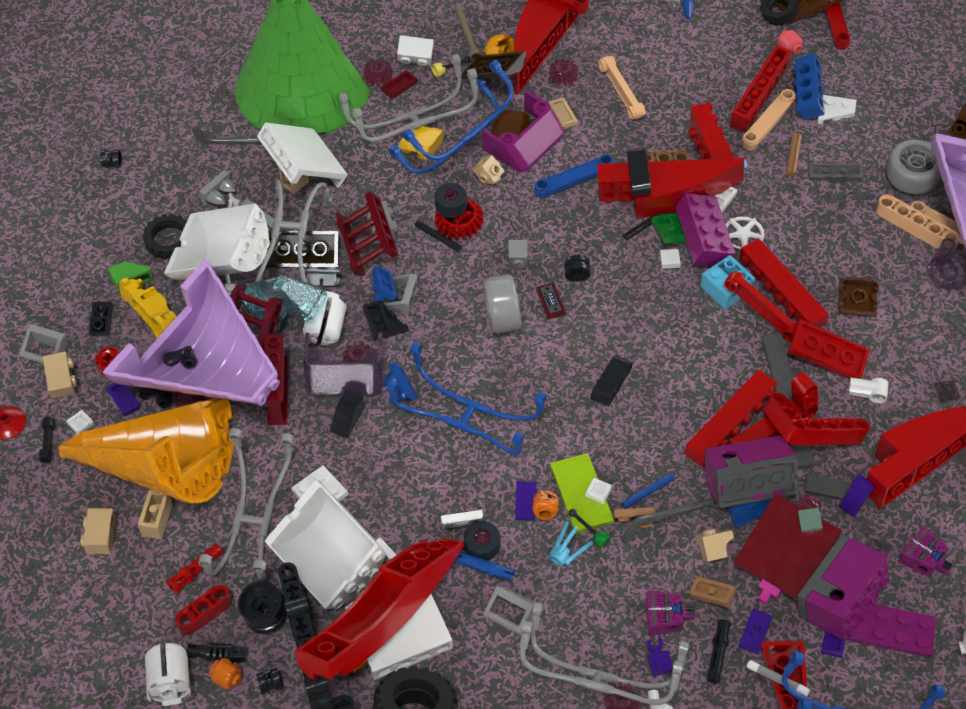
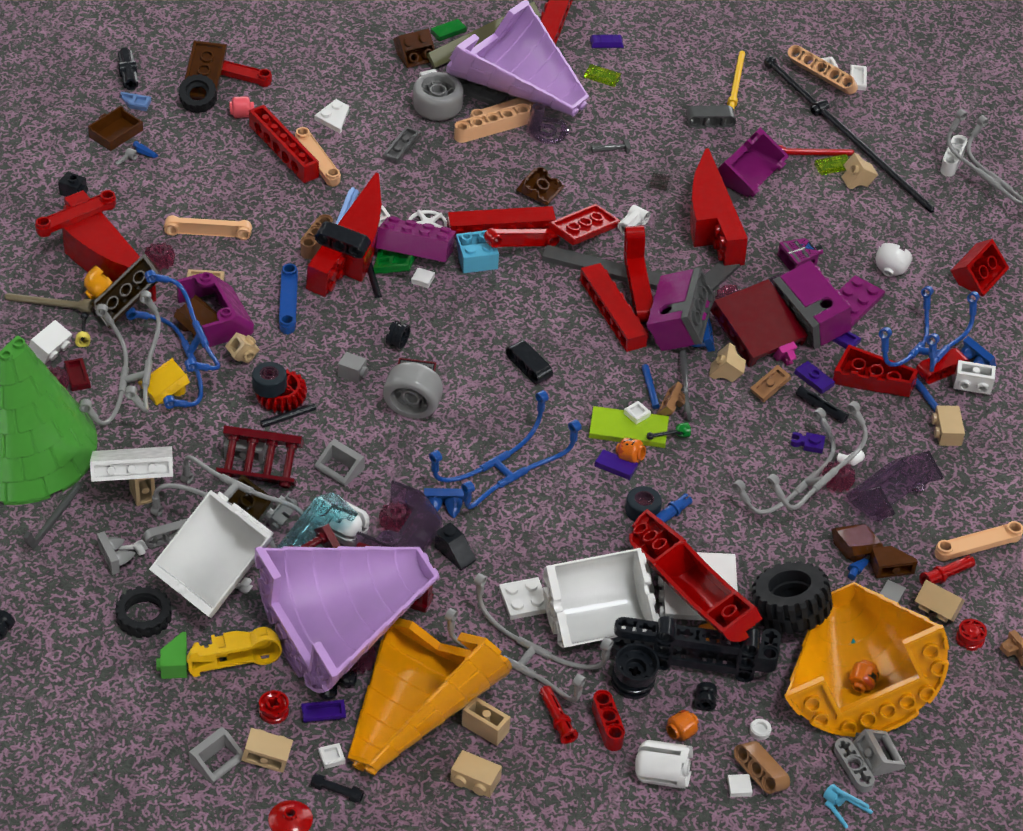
camera: 70 degrees left, 10 degrees down
(100, 319) = (208, 700): black slope -> none
(187, 359) = (328, 633): black piece -> none
(218, 651) = (658, 722): black hinge -> none
(382, 320) = (363, 486): black wing -> none
(383, 284) = (335, 470): blue tile -> none
(460, 519) = (619, 505): white tile -> none
(513, 597) = (729, 501): light grey tile -> none
(560, 553) = (683, 460): medium azure plant -> none
(666, 612) = (772, 419): magenta torso -> none
(706, 134) = (320, 195): red wedge -> none
(777, 677) = (871, 372): bar -> none
(793, 154) = (365, 159): medium nougat axle -> none
(809, 86) = (282, 104): blue brick -> none
(810, 520) = (751, 291): sand green tile -> none
(813, 430) = (655, 263): red beam -> none
(856, 495) = (731, 266): dark purple tile -> none

